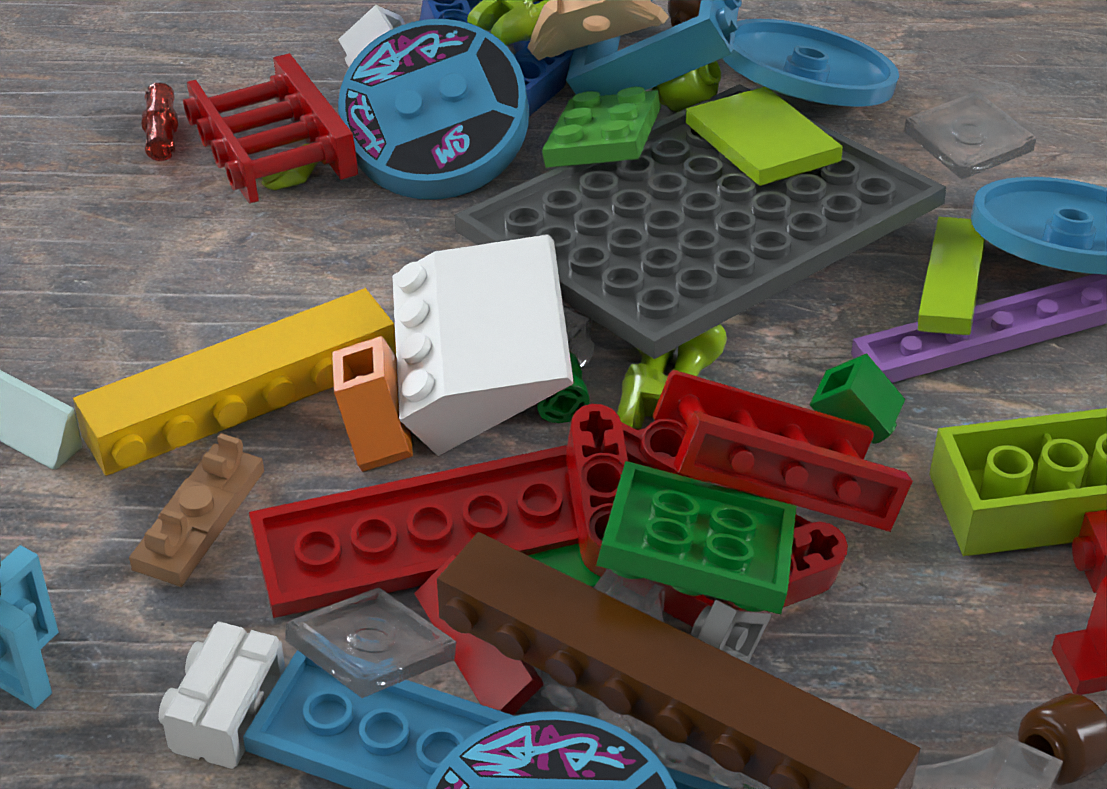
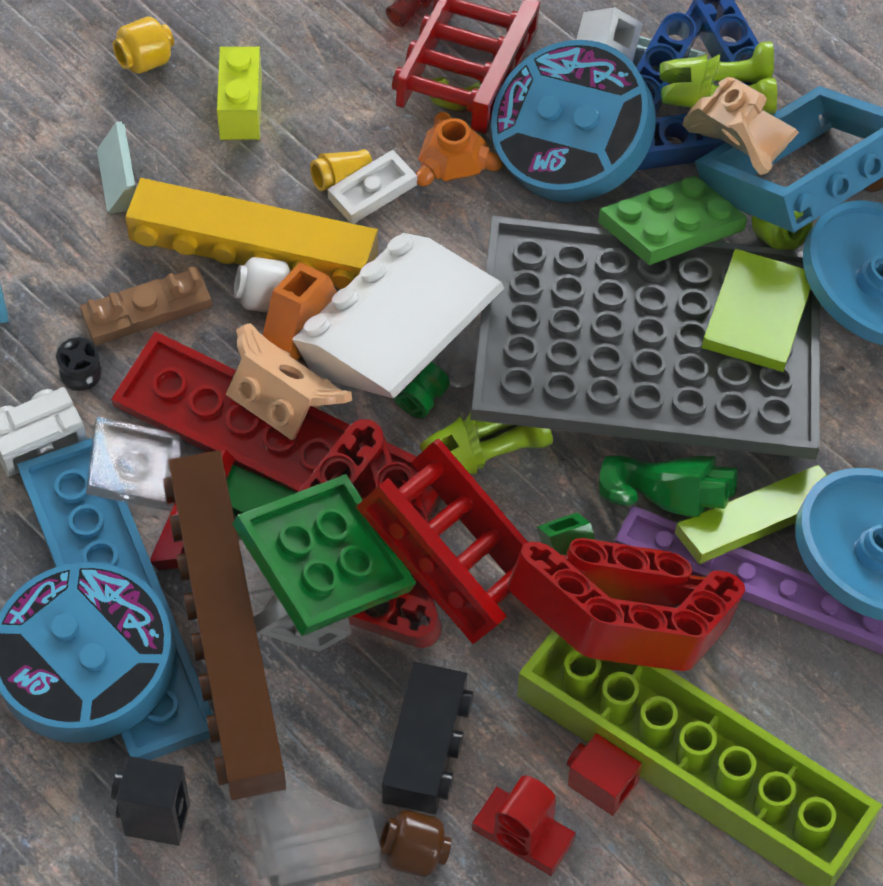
camera: 45 degrees right, 15 degrees up
(84, 281) = (239, 93): none -> neon yellow brick
(195, 589) = (72, 355): none -> black wheel
(254, 283) = (334, 167): none -> yellow cone
(303, 409) = (257, 281): none -> white head
(304, 273) = (372, 187): none -> white plate
(345, 202) = (454, 152): none -> orange rock
(445, 466) = (278, 385): none -> light nougat piece
(866, 294) = (675, 485): none -> green hips
(949, 648) = (427, 738): none -> black brick
(977, 388) = (622, 601): none -> red piece

